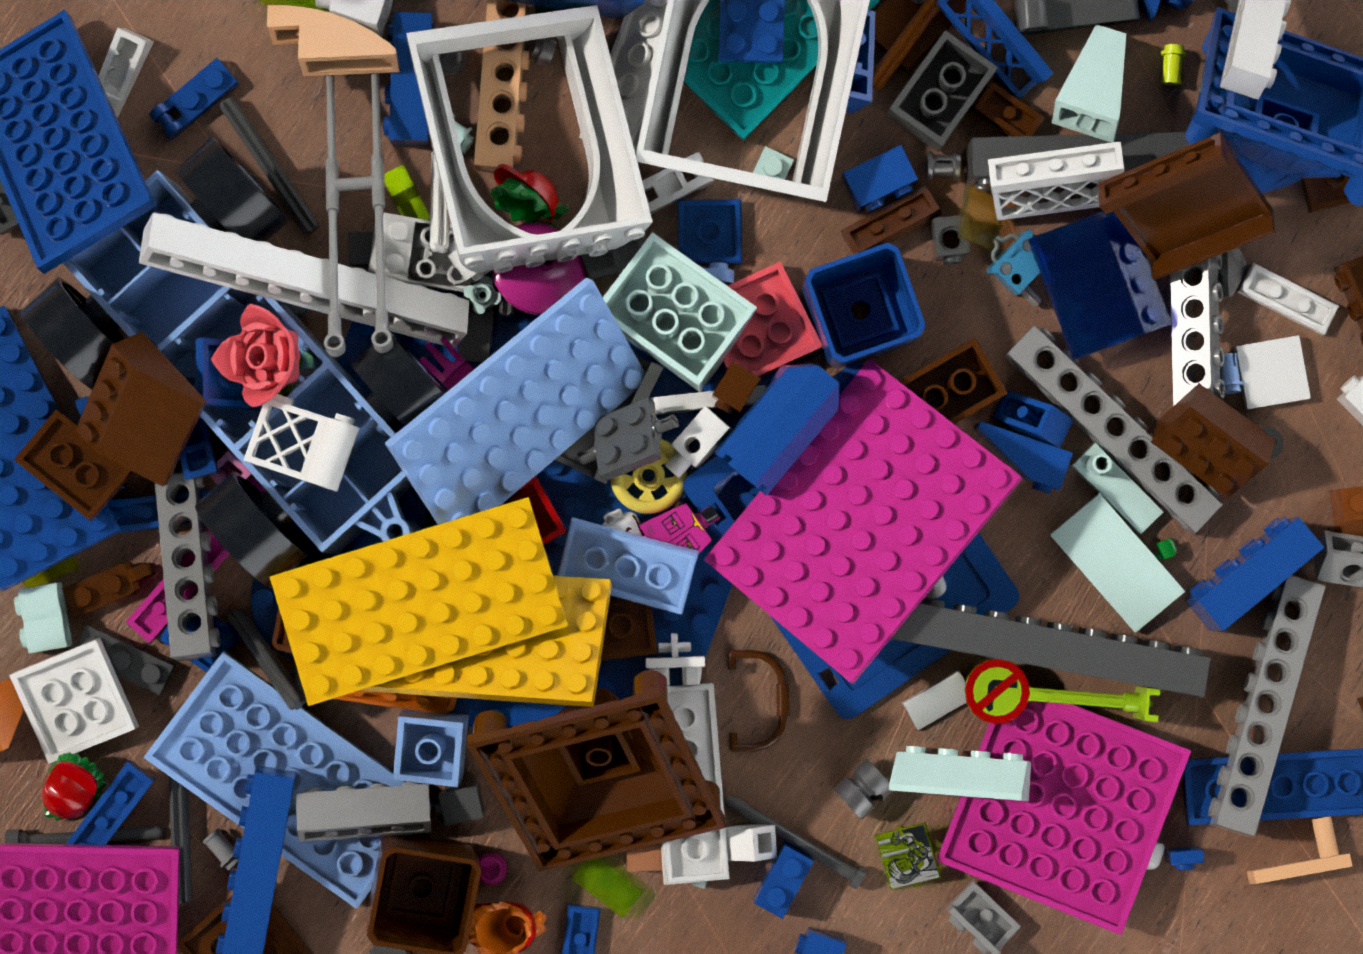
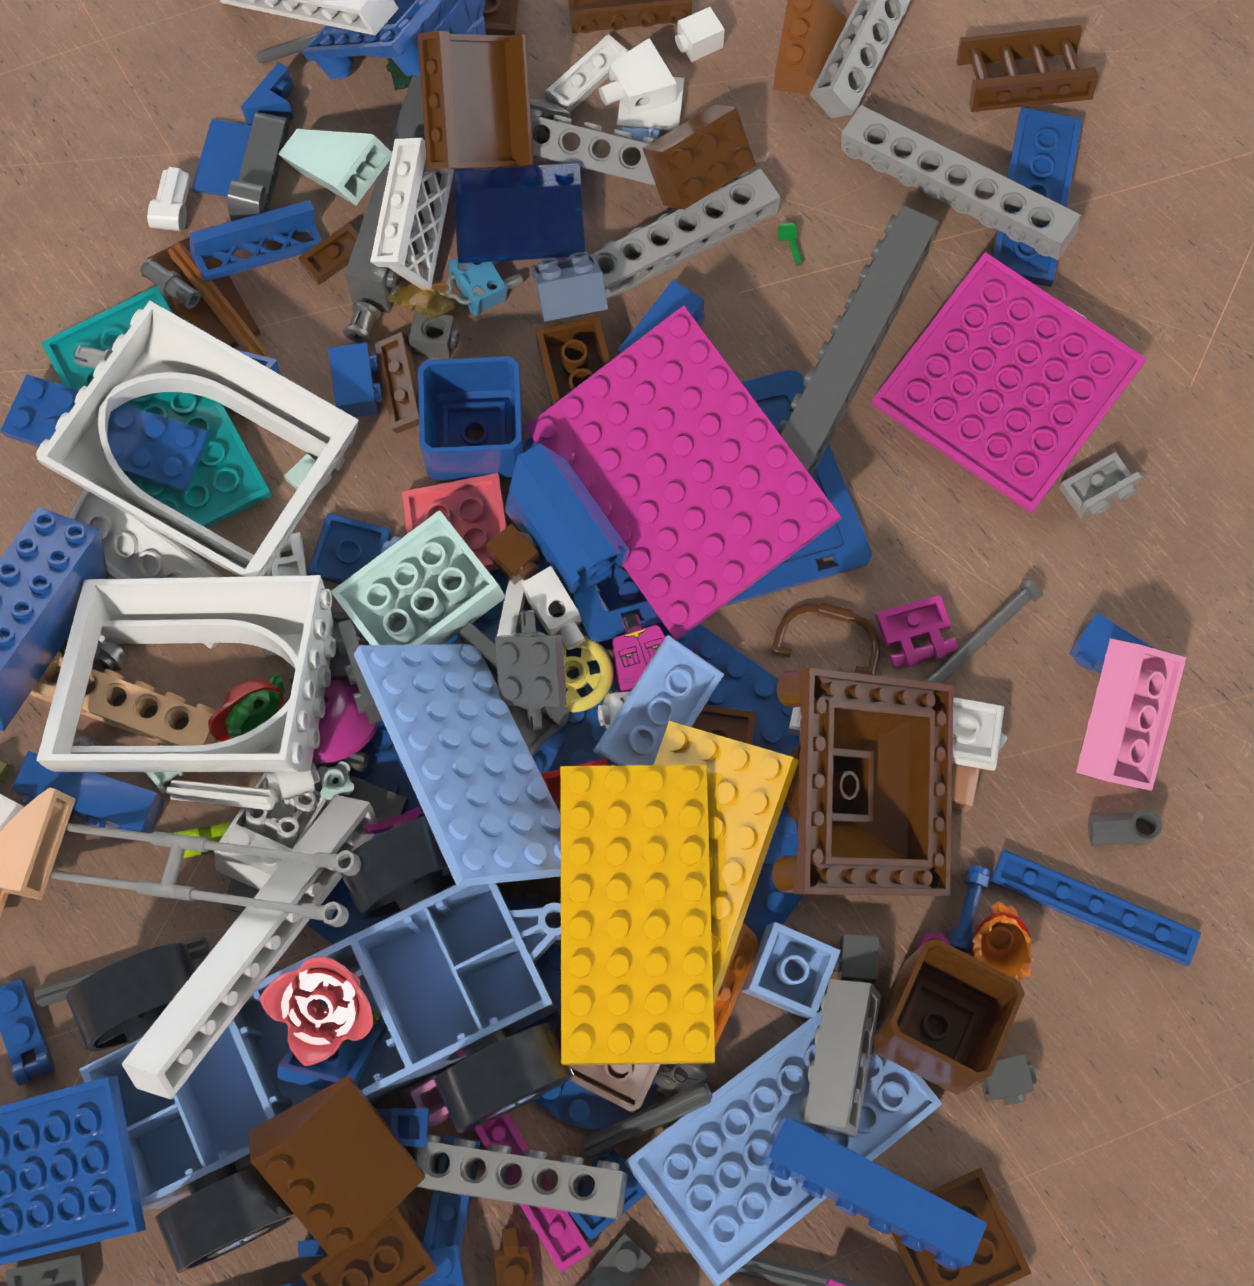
camera: 75 degrees left, 15 degrees down
(221, 849) = (841, 1236): light grey pin -> none
(328, 447) = (445, 961): white piece -> none
(565, 892) = (976, 879): none -> blue bar
(607, 885) = (980, 836): clear neon green plate -> none
(608, 266) = (347, 645): none -> dark grey plate
(690, 665) = (771, 715): white hips -> none
(744, 842) = (972, 675): white brick -> none
(783, 880) = (1017, 658): blue brick -> none
(792, 774) = (912, 622): none -> dark pink plate
(863, 788) = (943, 554): flat silver wheel -> none
(908, 856) = (1021, 537): piece -> none
(936, 700) = (874, 469): white slope -> none
(941, 91) = (291, 300): dark grey brick -> none
(961, 775) = (956, 458): light aqua slope -> none
(1000, 692) = (884, 404): lime piece -> none
(1029, 355) = (569, 286): none -> sand blue slope
(1033, 418) = (627, 308): blue slope -> none
(1117, 488) = (718, 259): light aqua piece -> none
(1117, 562) = (787, 276): light aqua tile -> none
(1172, 64) = (340, 107): neon yellow pin -> none
(1184, 857) = (1083, 292): blue plate -> none
(1253, 573) = (832, 160): blue brick -> none
(1287, 355) = (639, 80): none -> white torso
(1328, 852) = (1115, 175): light nougat piece -> none

